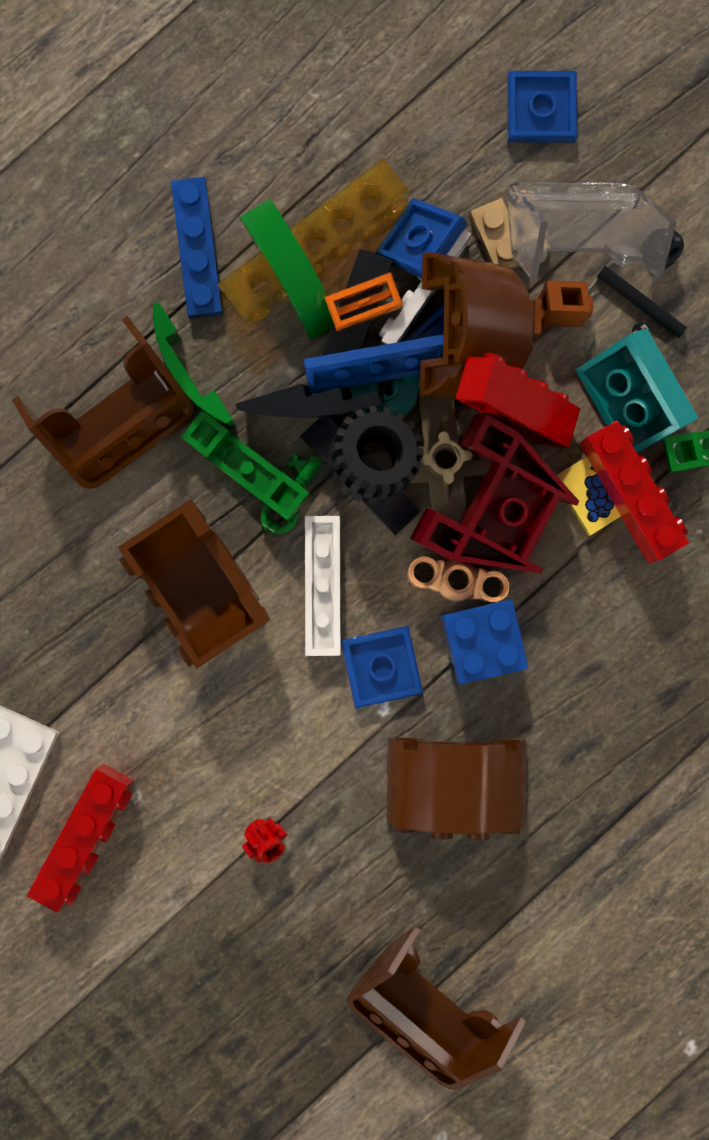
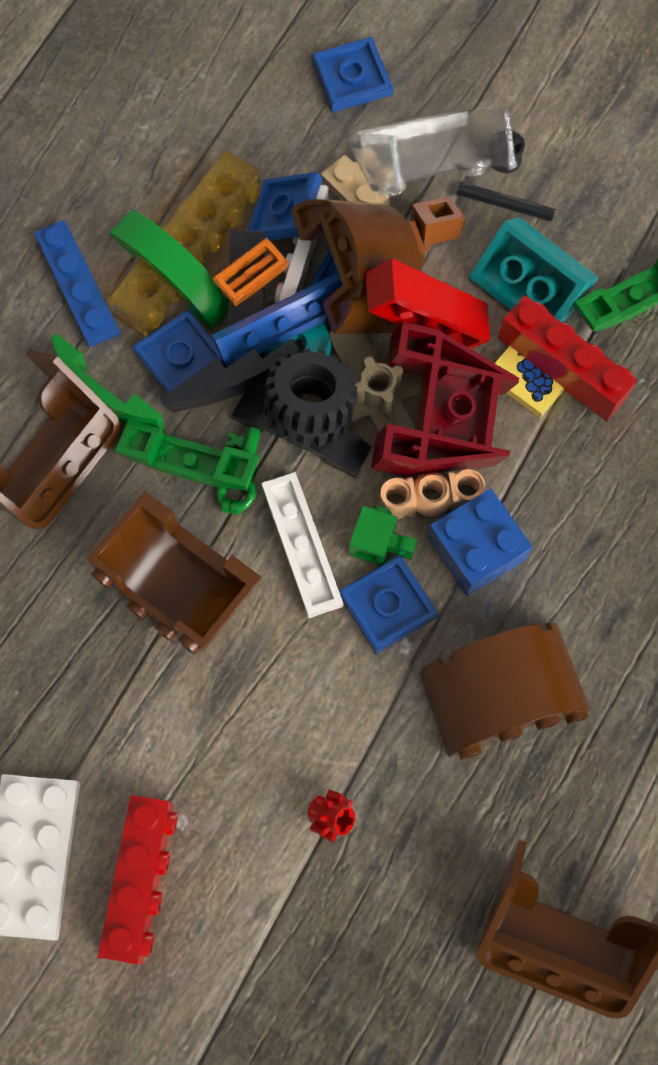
camera: 15 degrees left, 15 degrees down
(270, 356) = (176, 351): none -> blue tile
(392, 602) = (376, 537): none -> green brick

